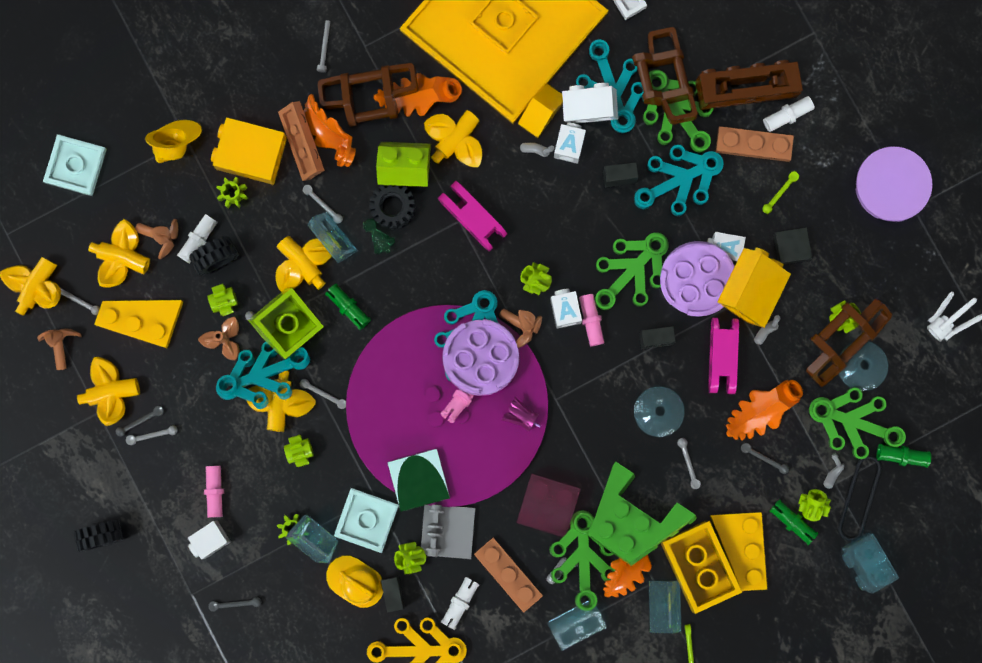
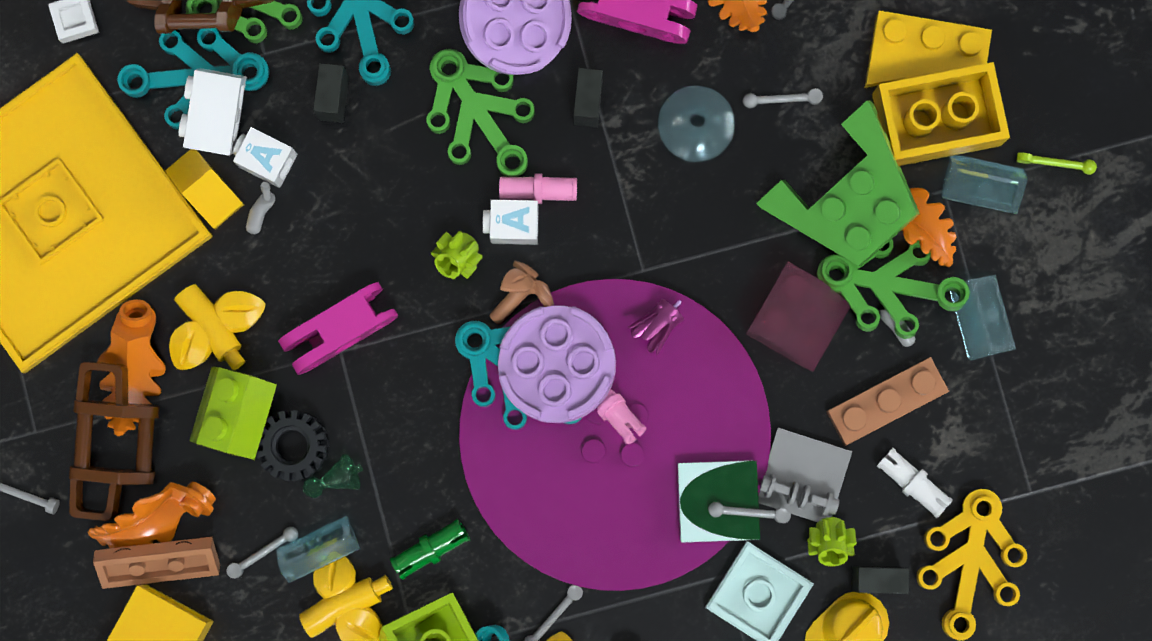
camera: 80 degrees left, 0 degrees up
(412, 479) = (781, 515): none -> light grey hinge

